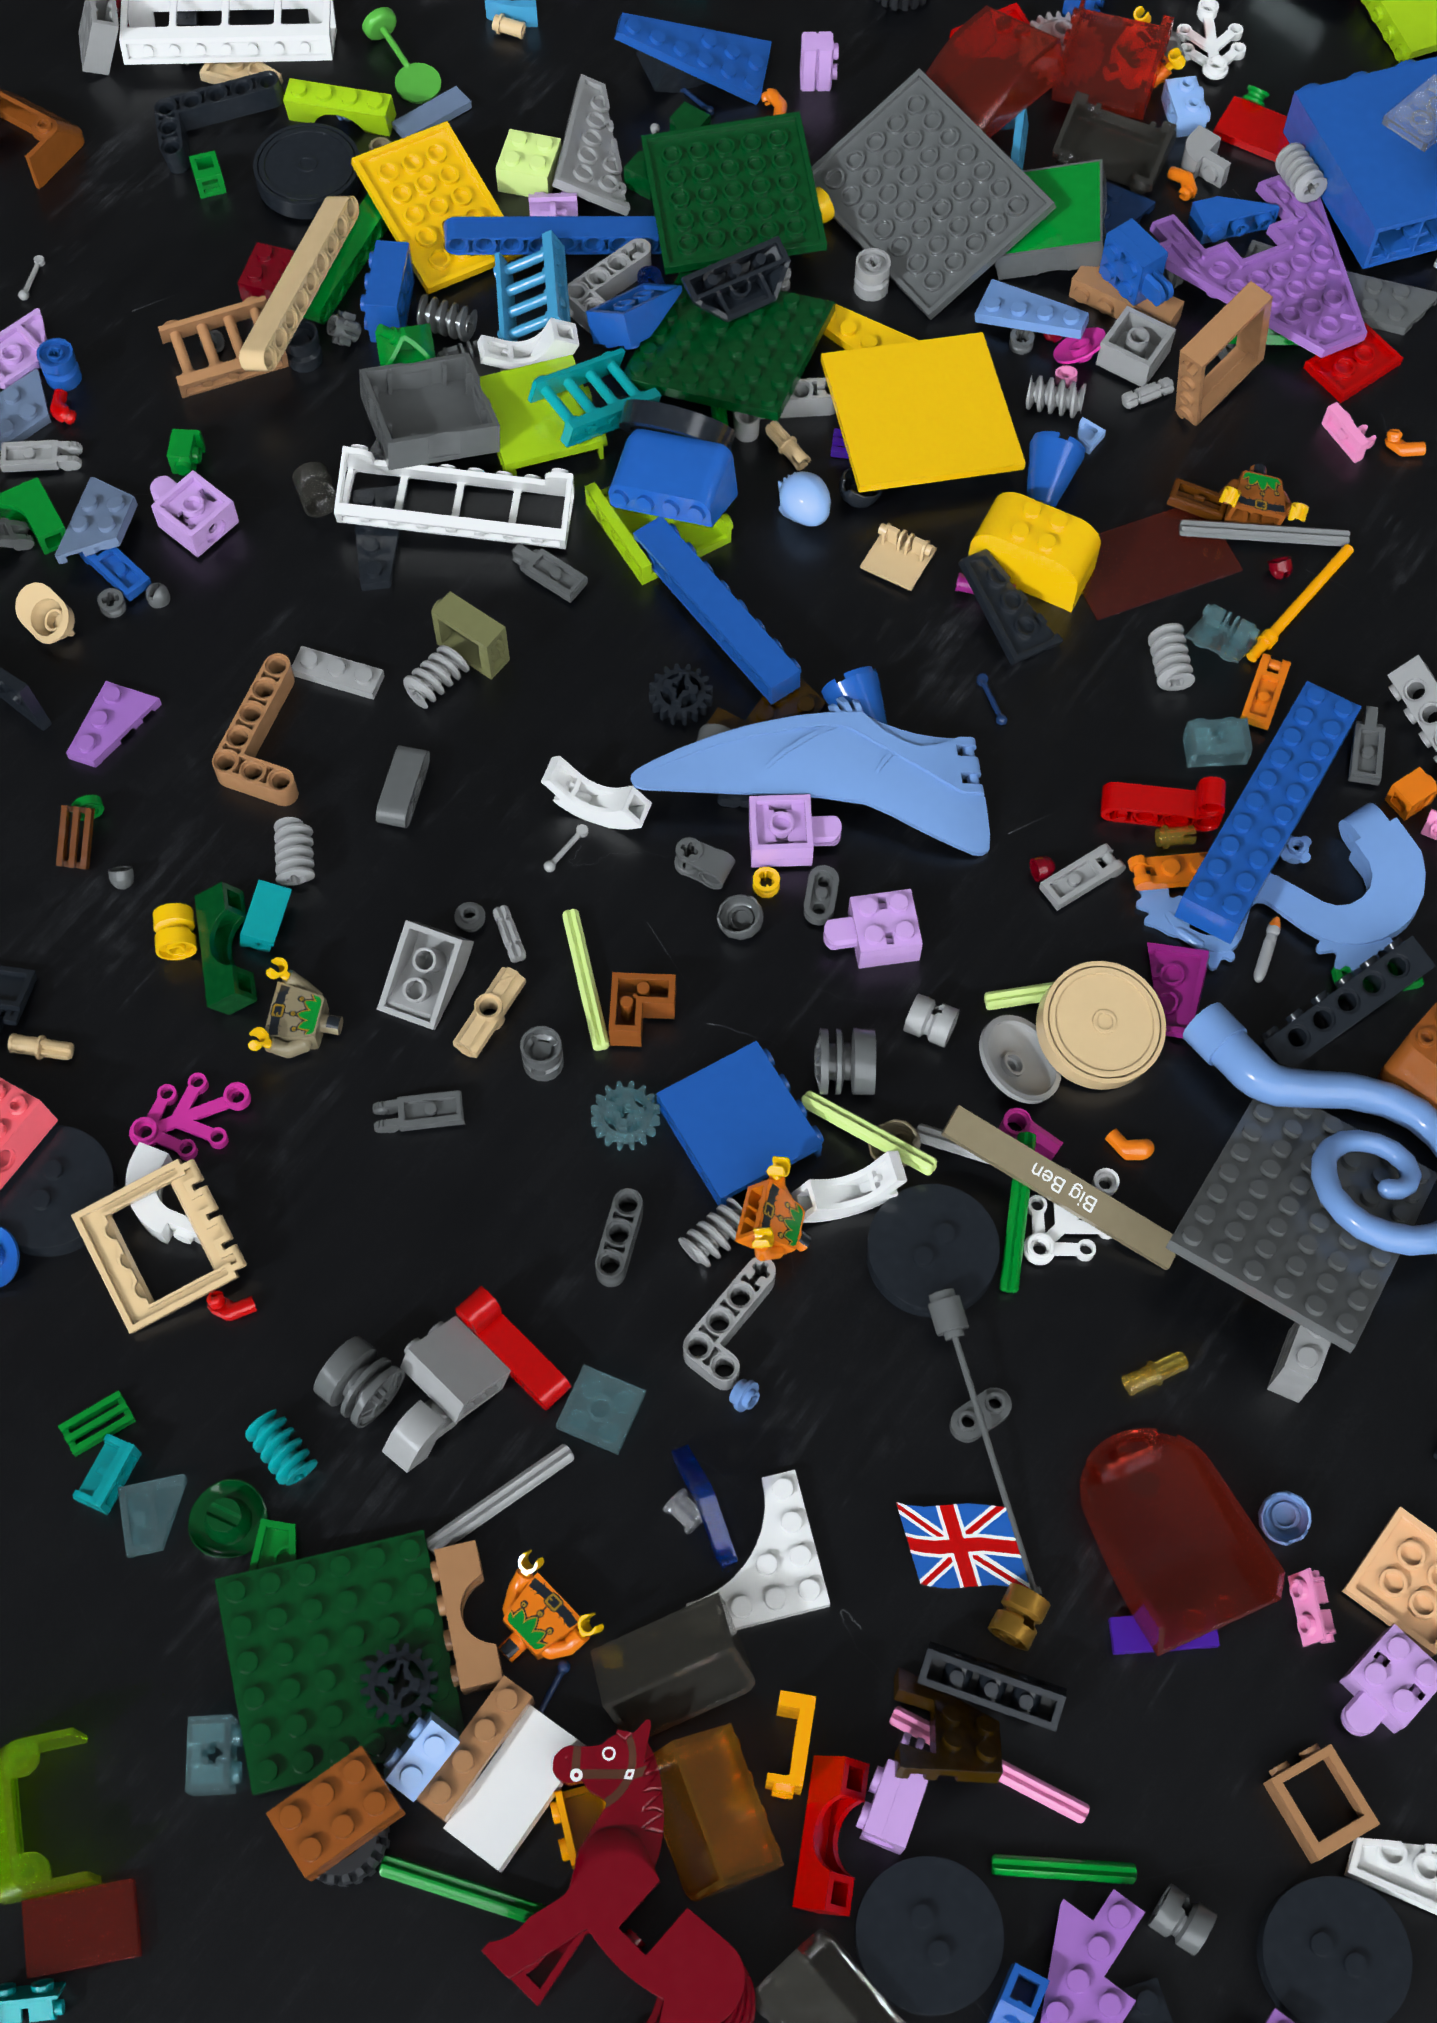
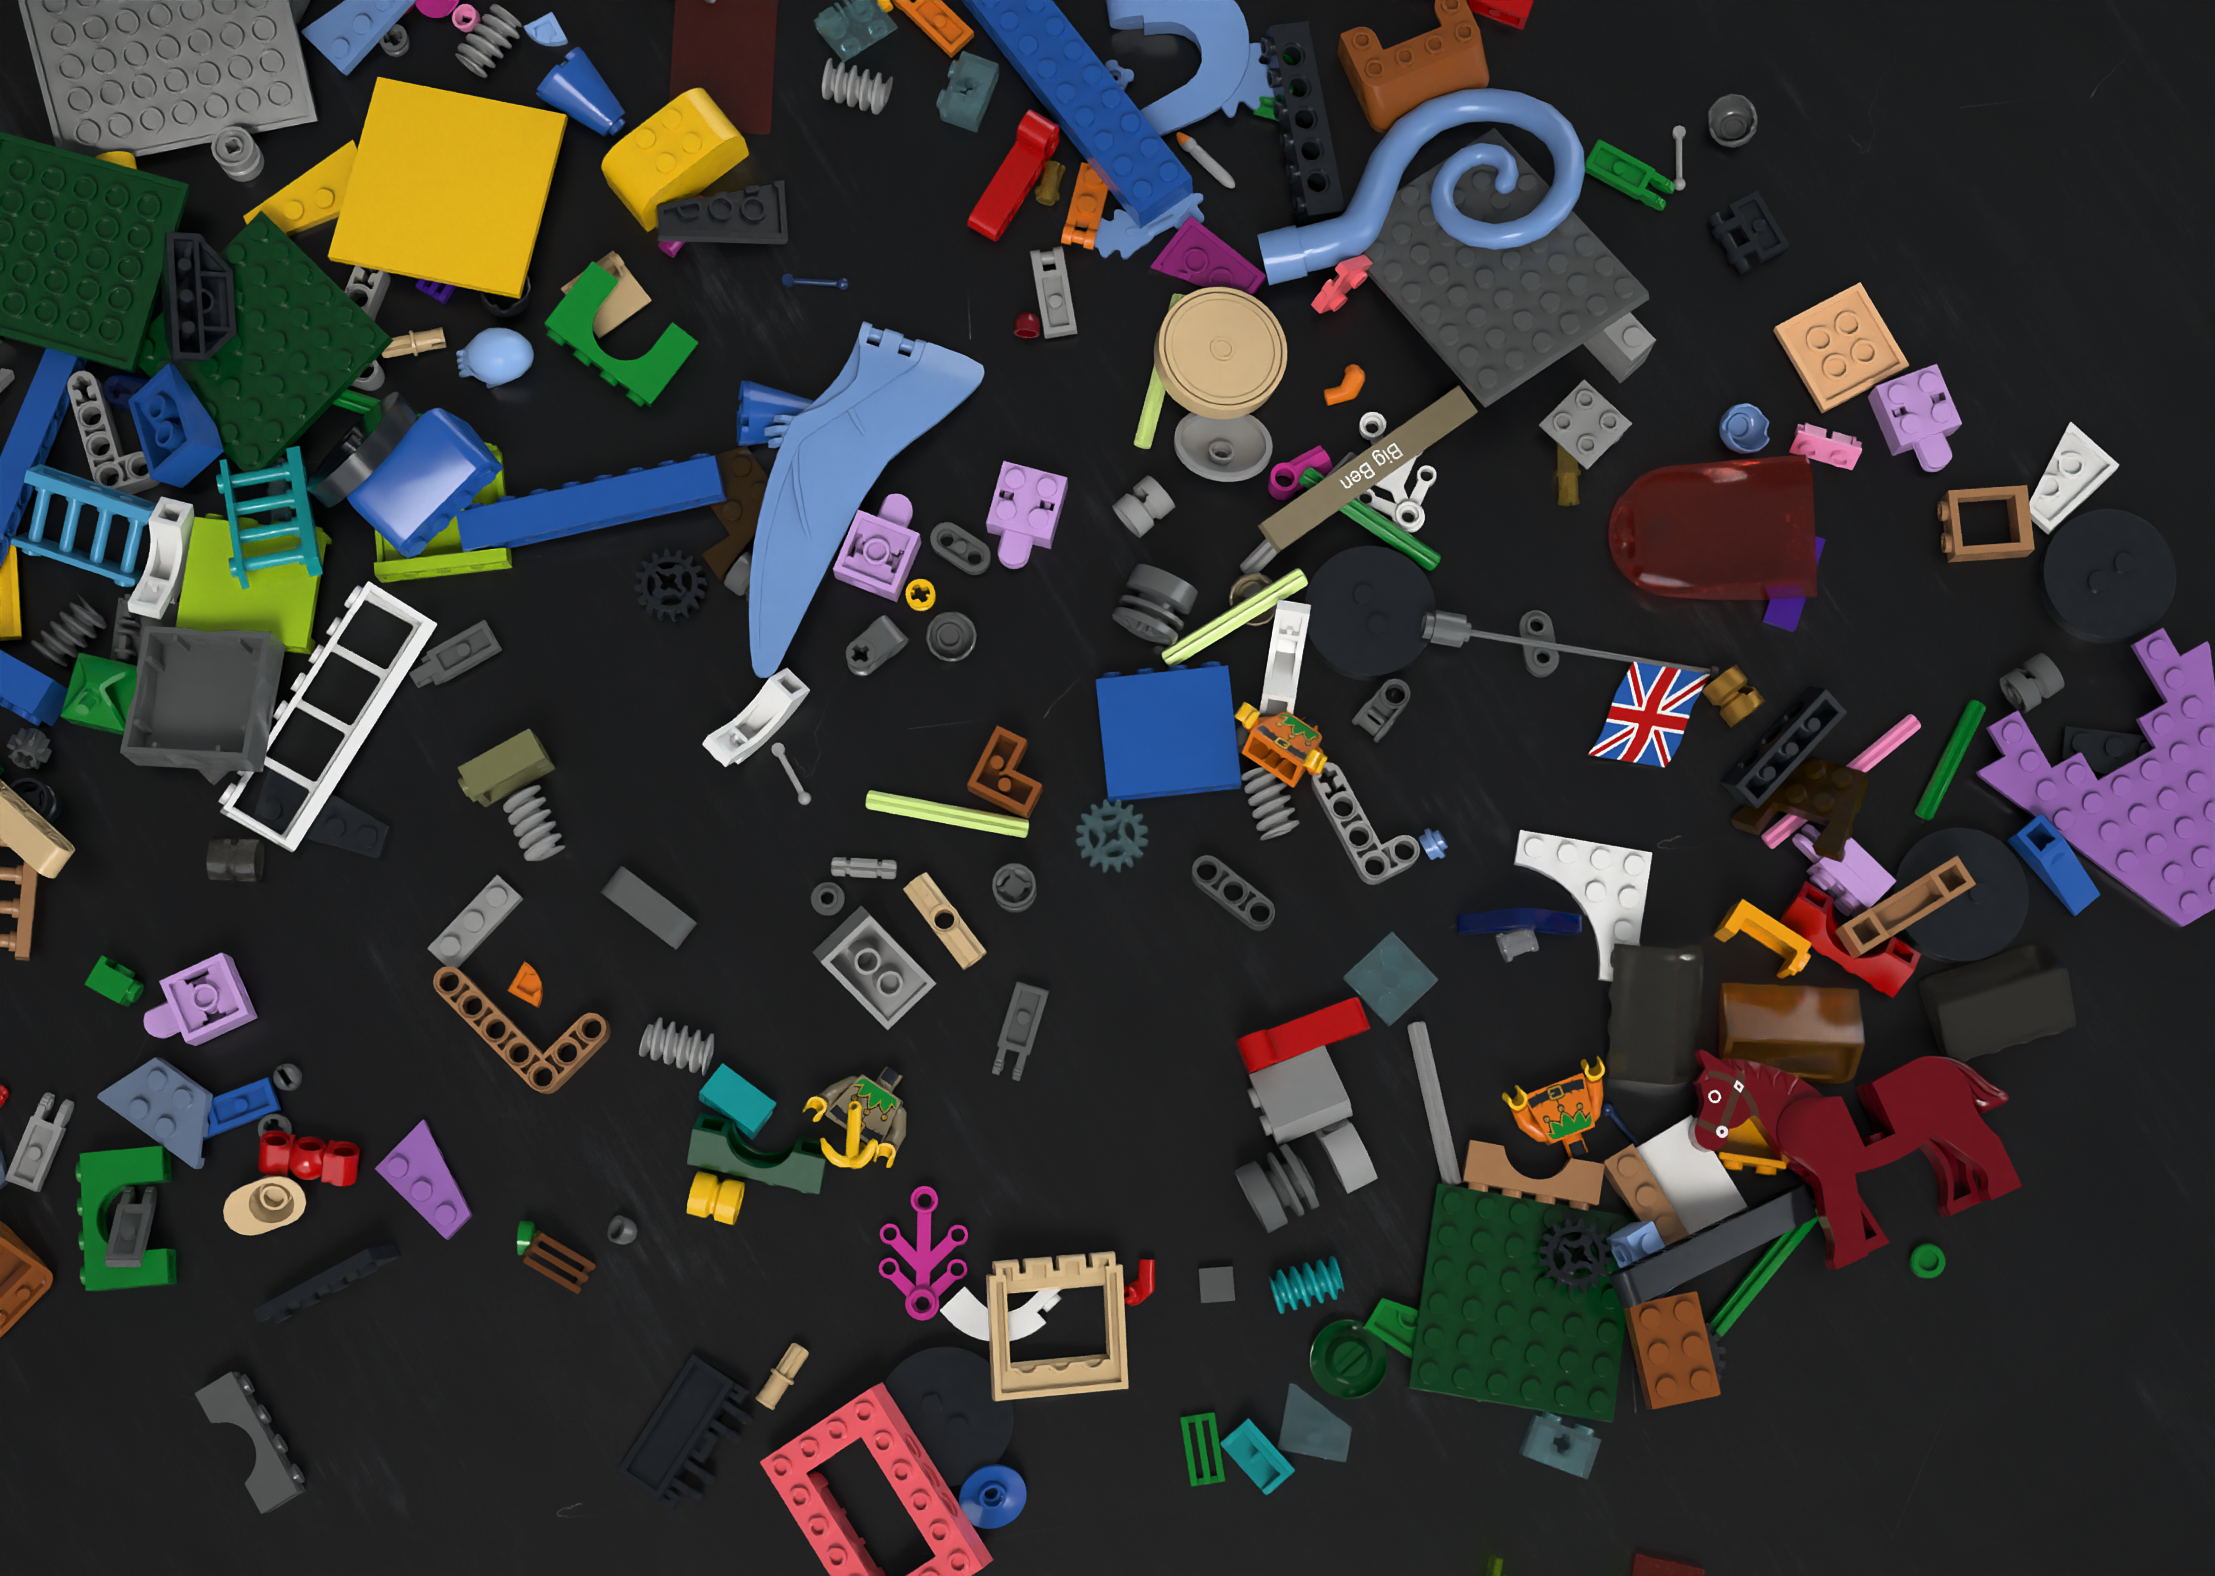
camera: 65 degrees left, 15 degrees up
(94, 629) = (308, 1158): none -> red piece
(254, 1016) = (856, 1153): none -> yellow piece
(254, 1373) = (1216, 1284): none -> dark grey tile
(302, 729) = (527, 985): none -> orange tile
(458, 1813) = (1712, 1245): none -> black beam
(847, 1297) = (1381, 711): none -> dark grey piece
(858, 535) = (642, 377): none -> green arch
(889, 1877) = (1905, 907): none -> medium nougat arch
(1207, 1367) = (1585, 424): none -> light grey hinge
(1218, 1094) = (1350, 274): none -> coral wing

